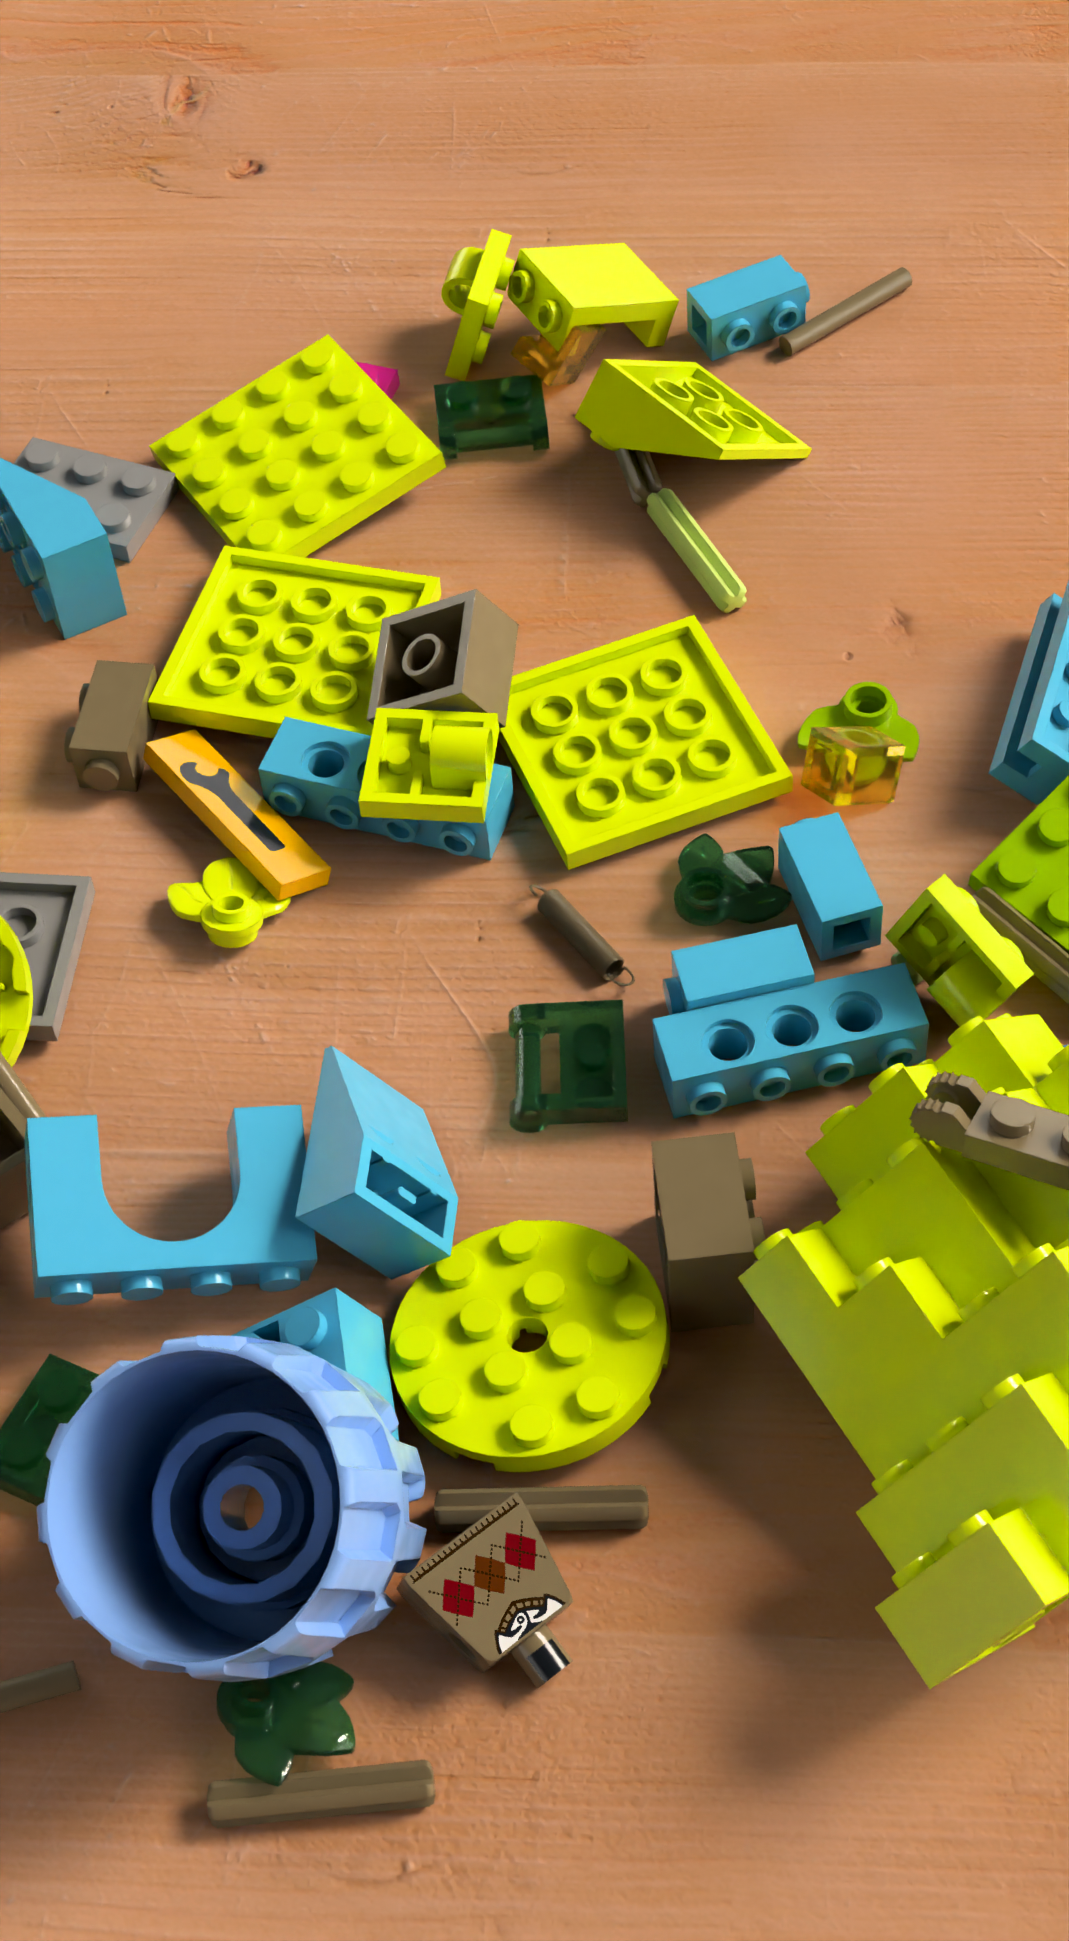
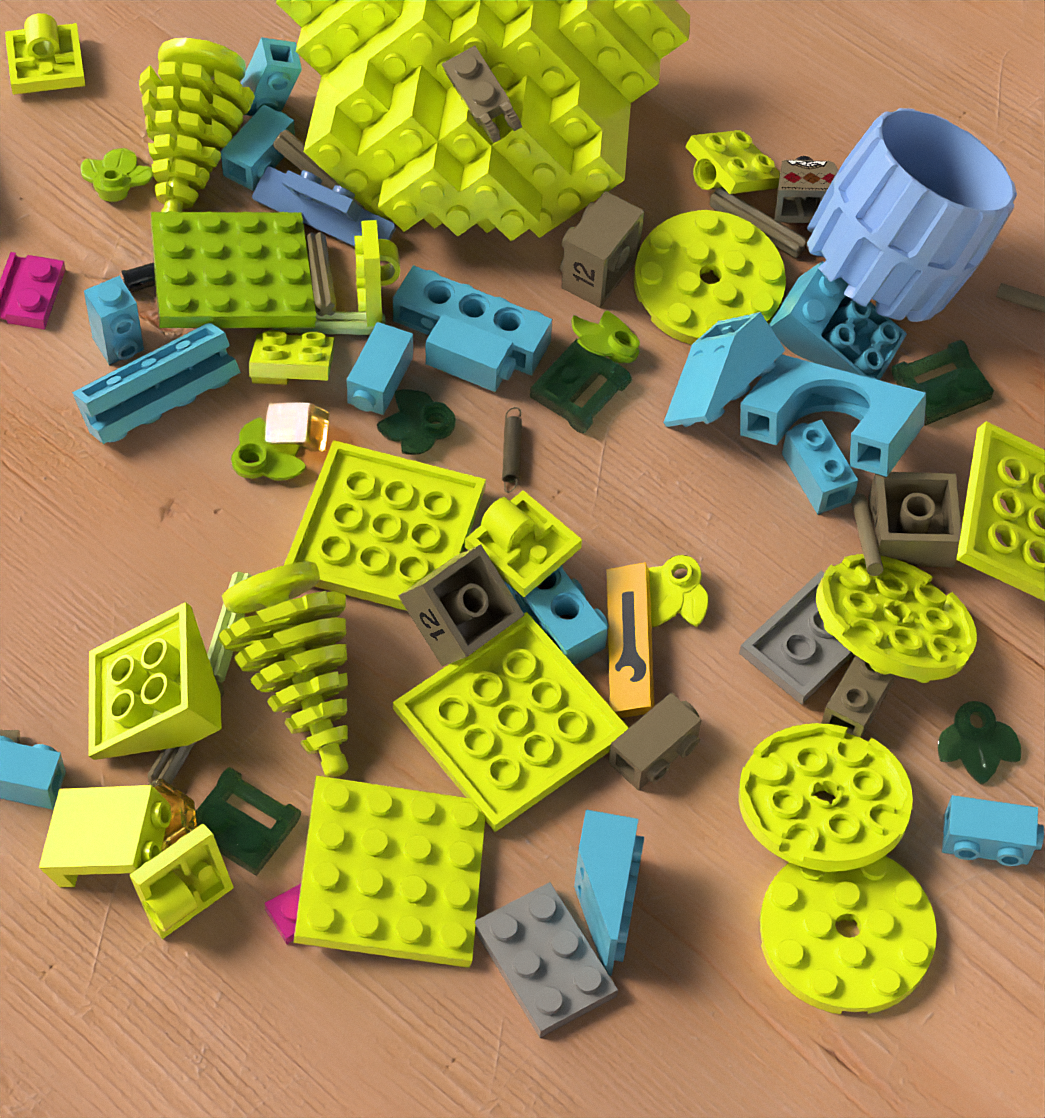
camera: 150 degrees left, 5 degrees up
(160, 1167) = (819, 466): none -> medium azure brick
(587, 518) = (294, 652): none -> neon yellow plant
(605, 1145) = (607, 338): none -> lime plate
(656, 1567) = (731, 163): none -> neon yellow plate
(944, 819) = (286, 357): none -> neon yellow plate

